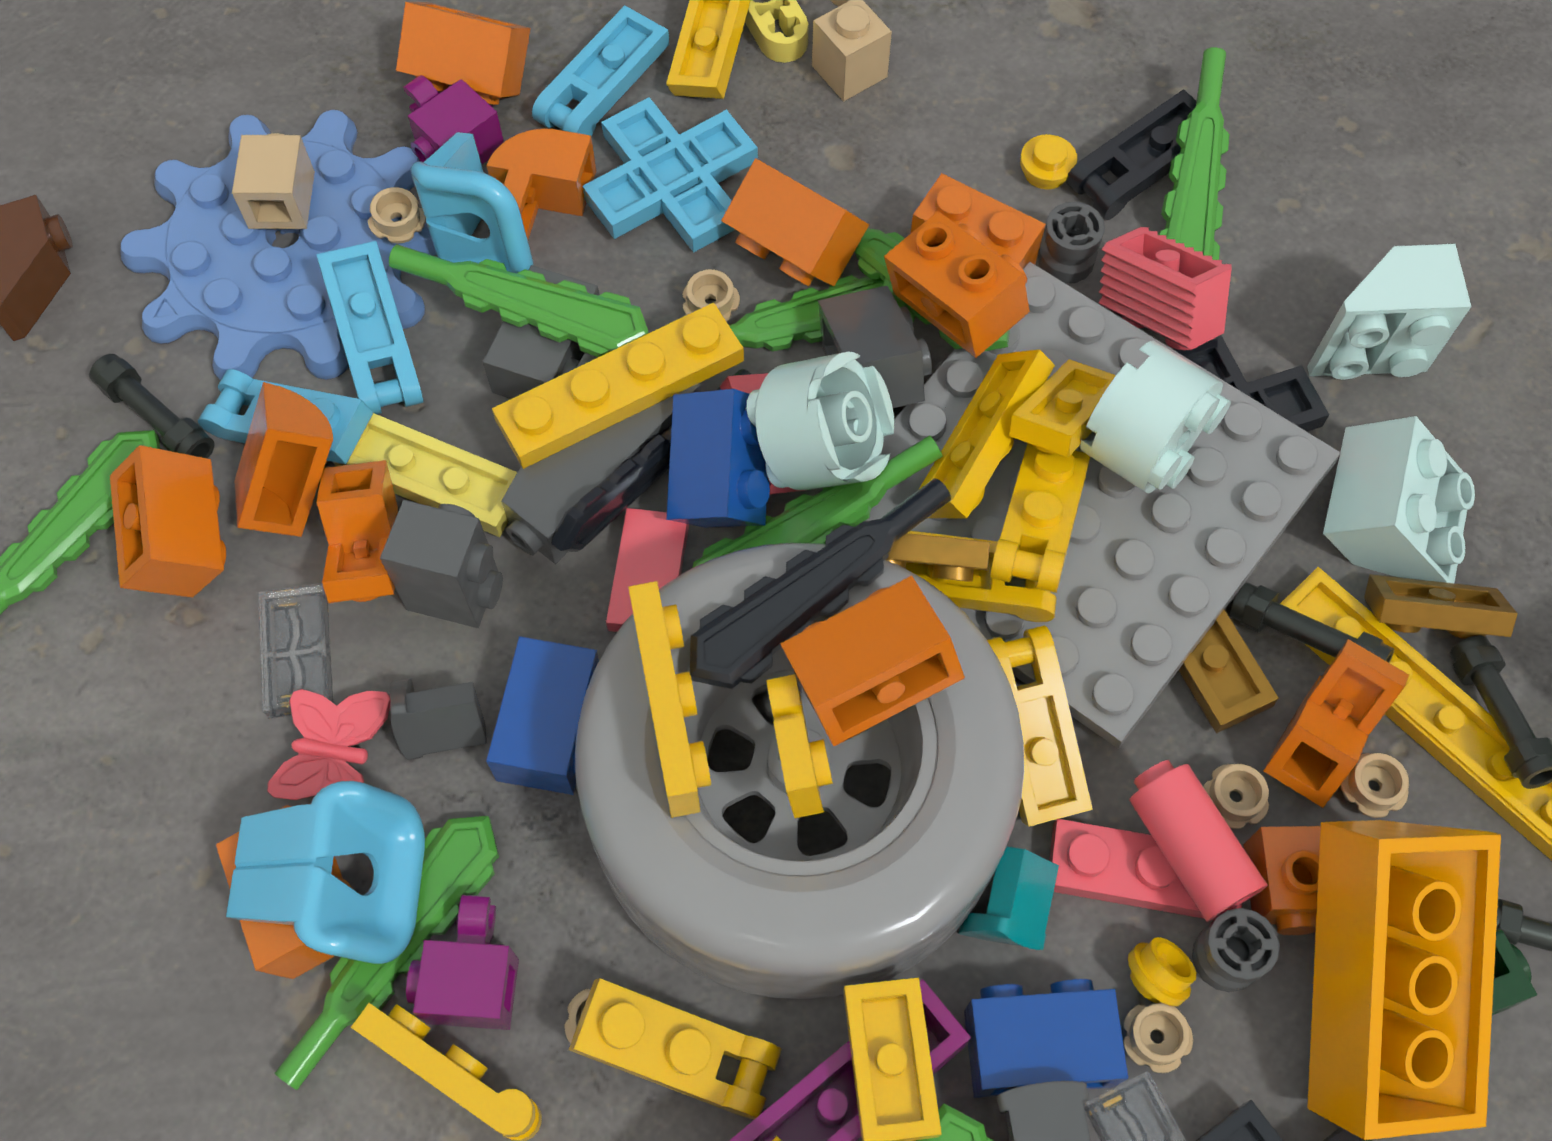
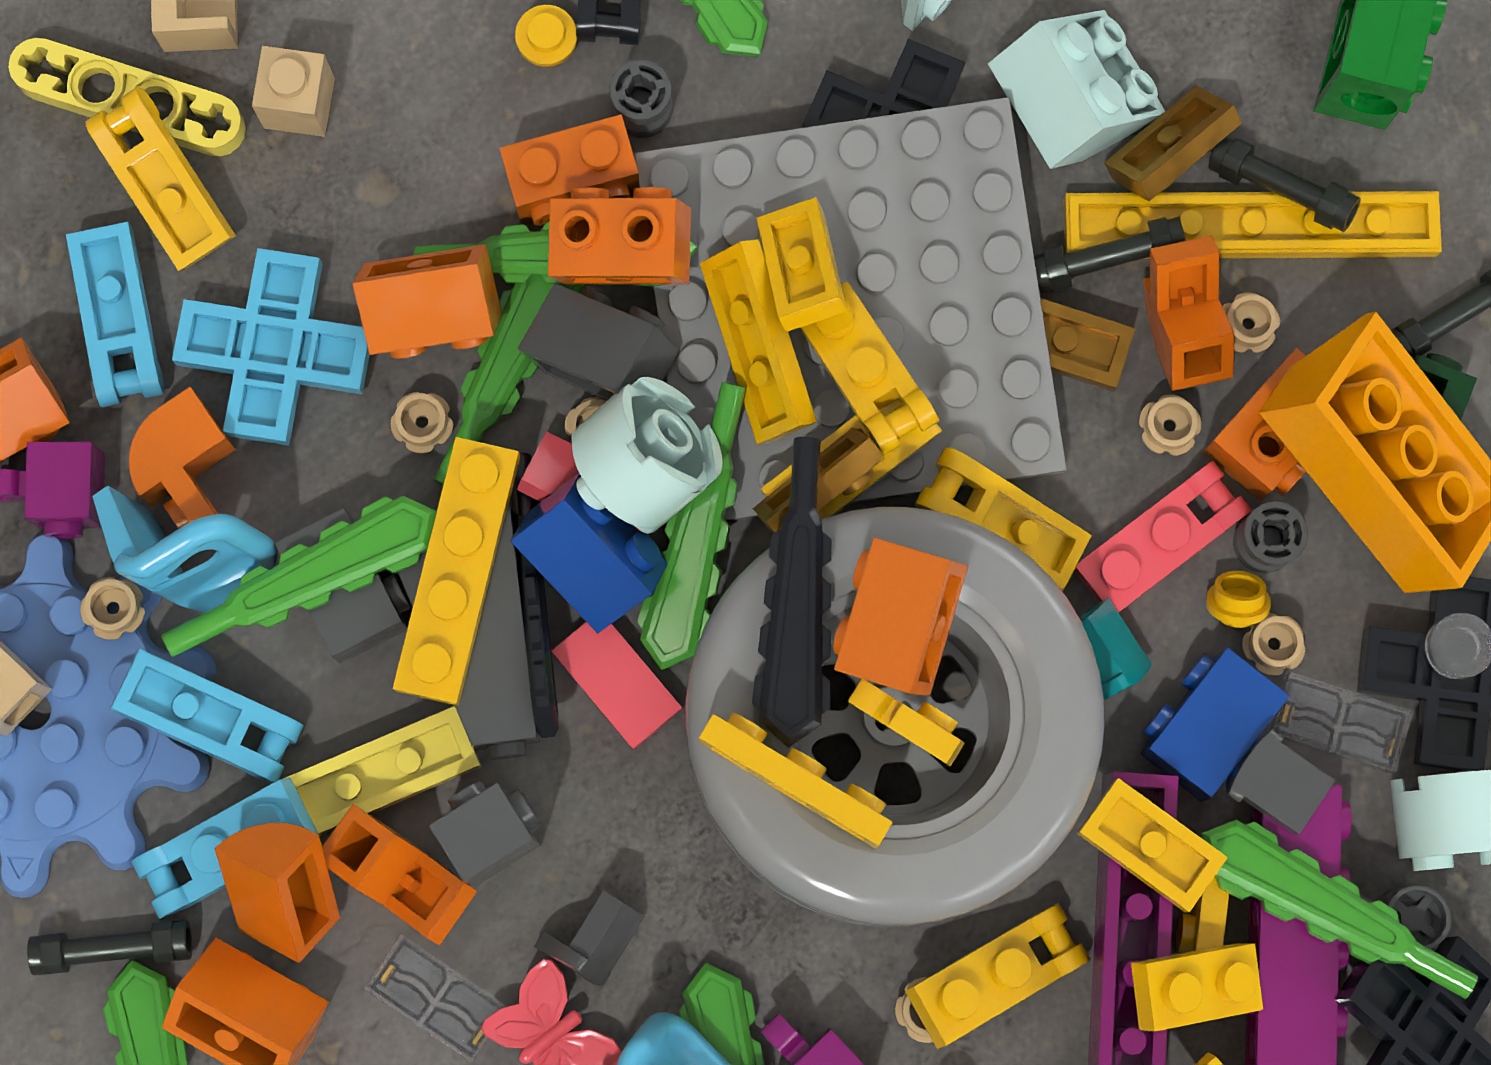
camera: 50 degrees left, 15 degrees up
(541, 715) = (672, 855): blue piece -> none
(1154, 418) = (878, 218): light aqua brick -> none
(1165, 287) = (757, 78): coral brick -> none
(1195, 839) = (1183, 494): coral brick -> none

